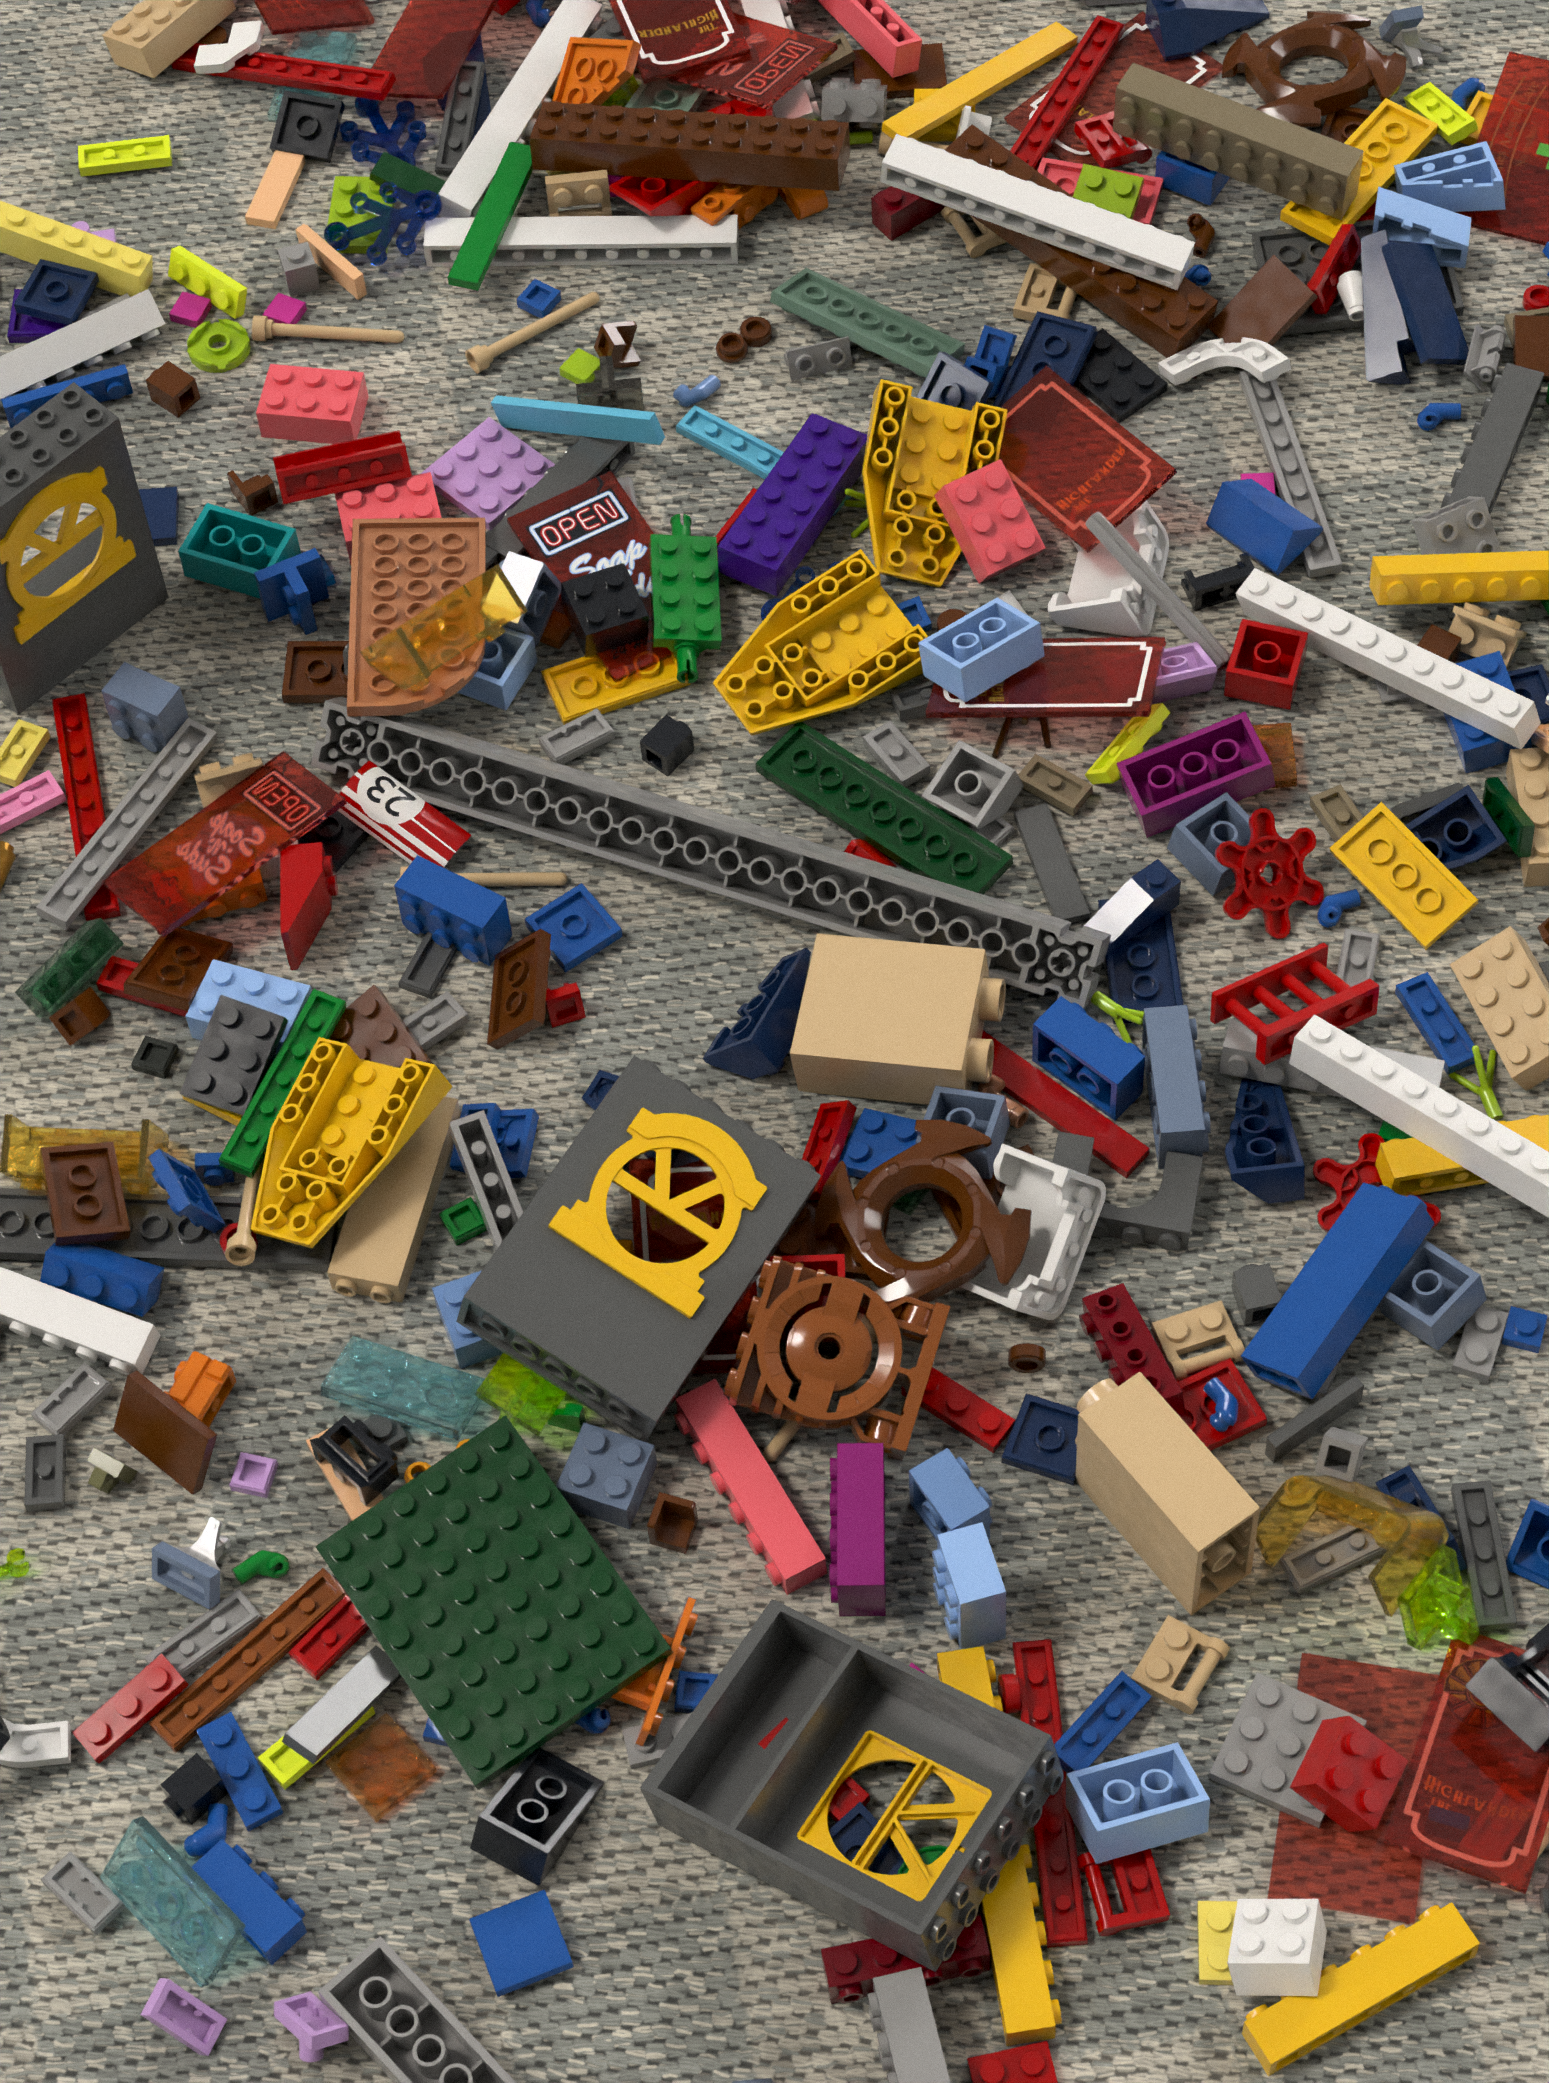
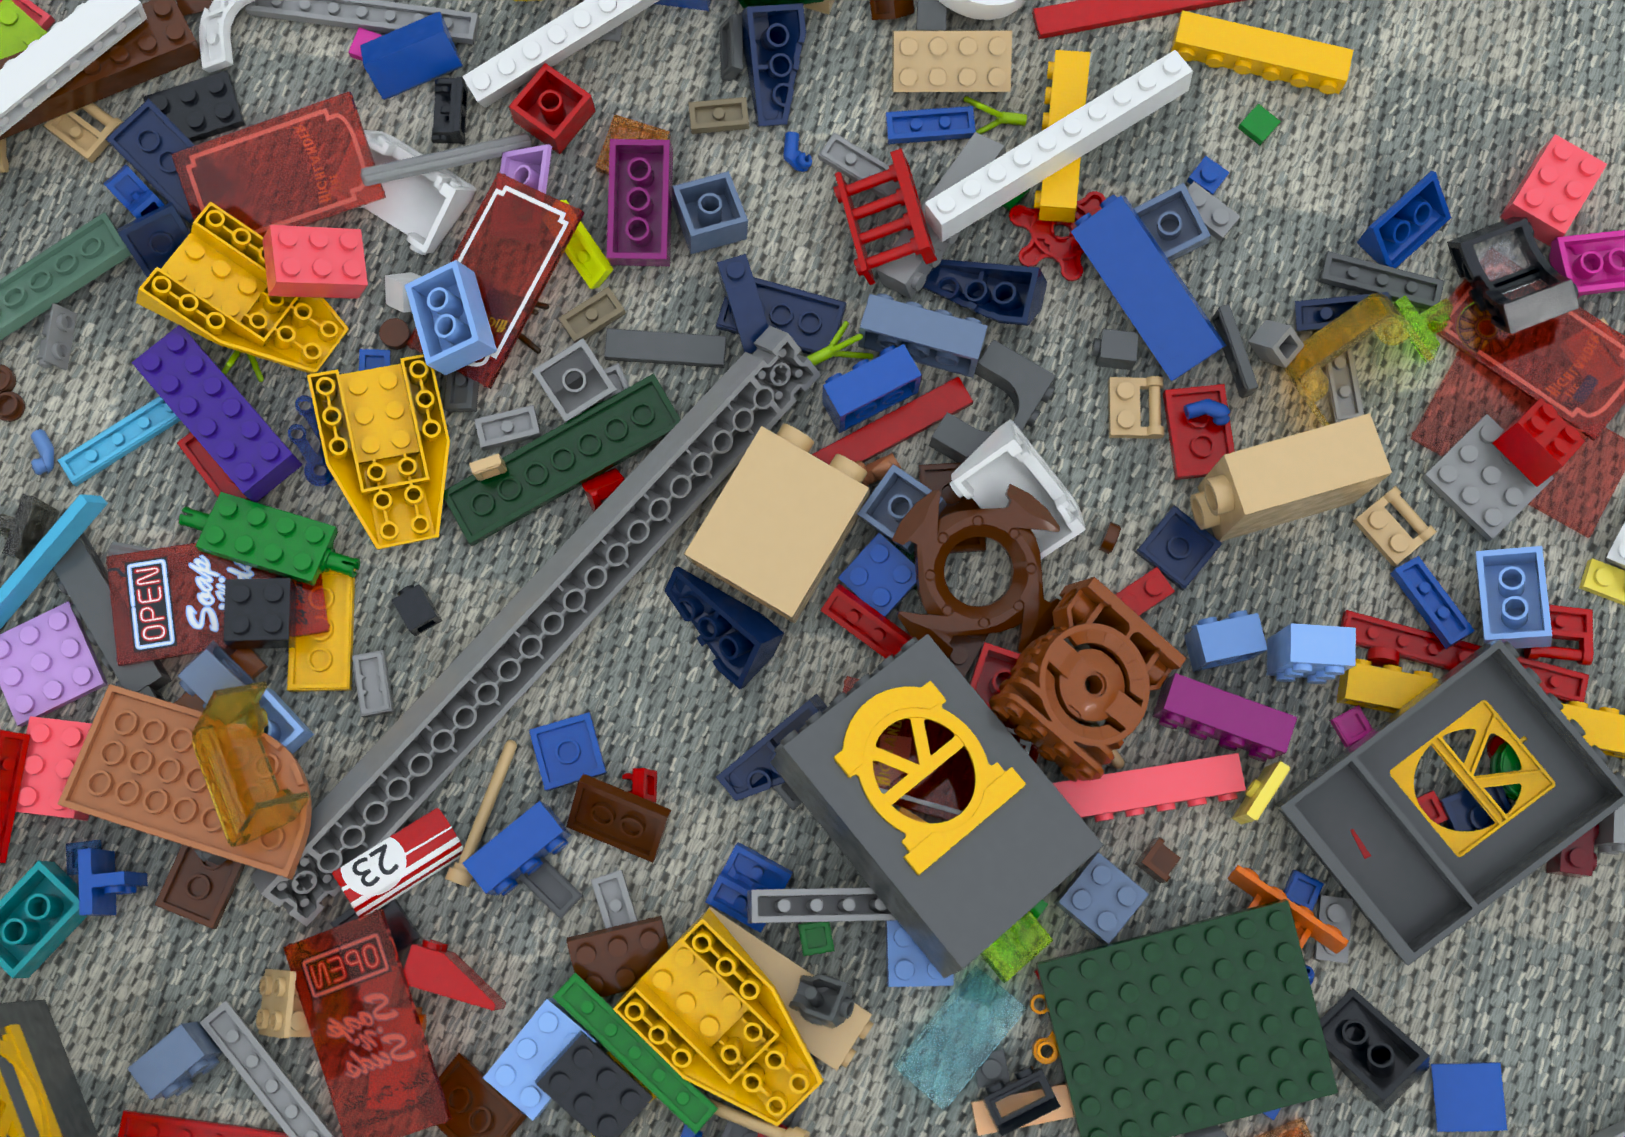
camera: 75 degrees left, 20 degrees up
(394, 1226) = (823, 1000): none -> dark grey hand
(794, 1591) = (1261, 792): none -> light yellow plate
(840, 743) = (488, 467): none -> tan tile
(1127, 1343) = (1144, 459): dark red brick -> none
(1288, 879) = (758, 186): red plate -> none
(1403, 875) = (796, 91): yellow plate -> none

